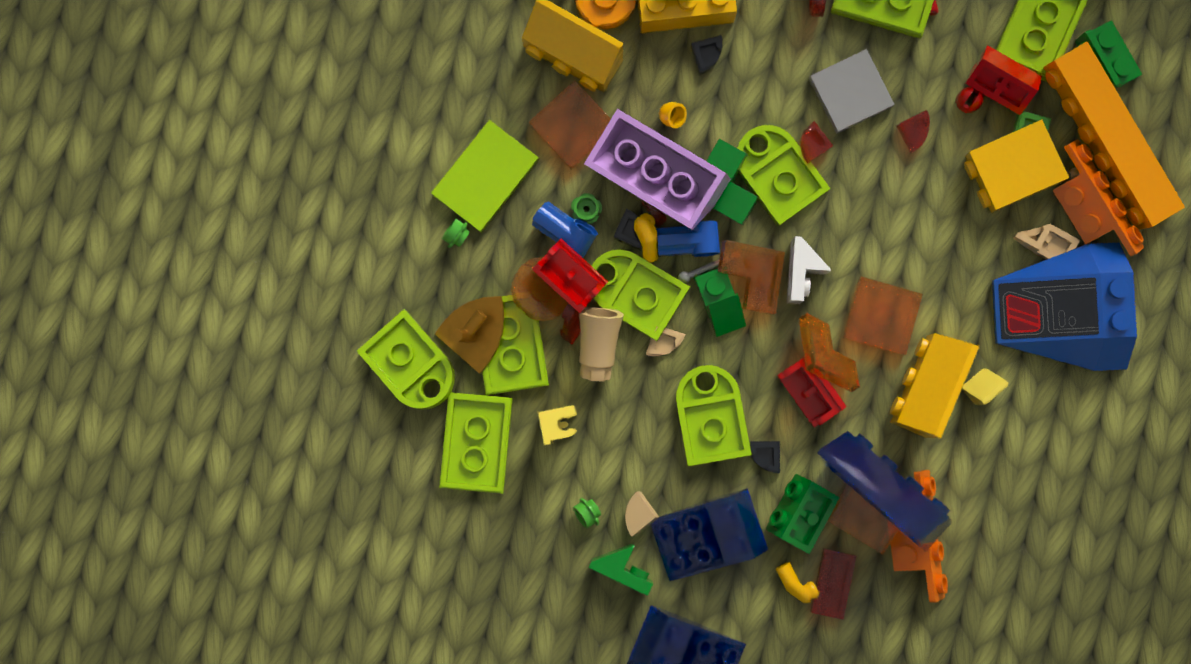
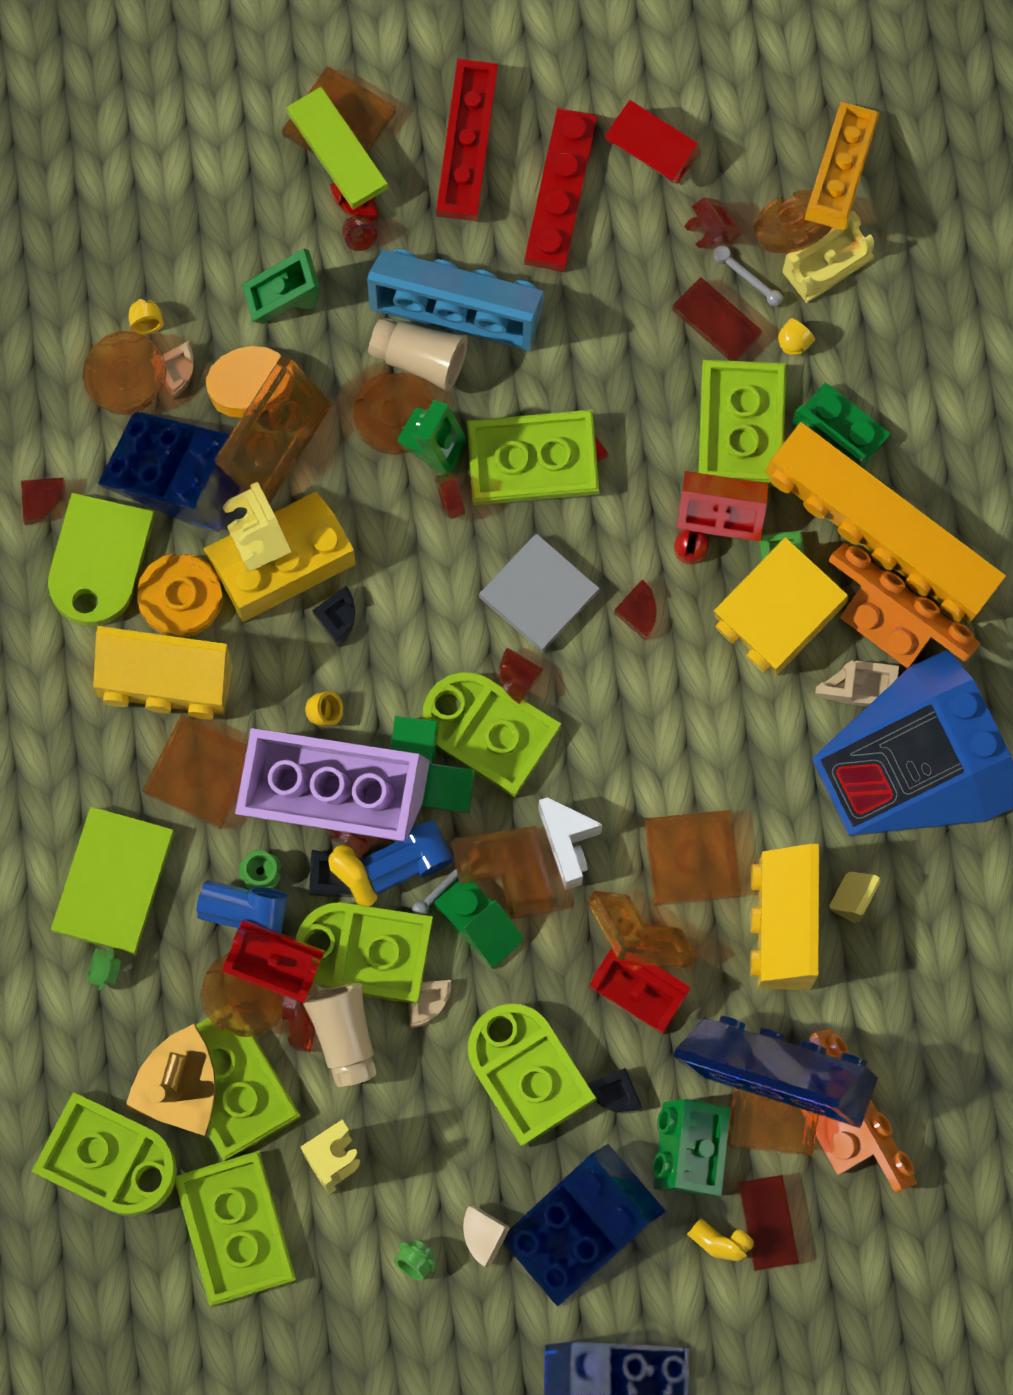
camera: 30 degrees left, 10 degrees down
(613, 566) = (476, 1314): green slope -> none

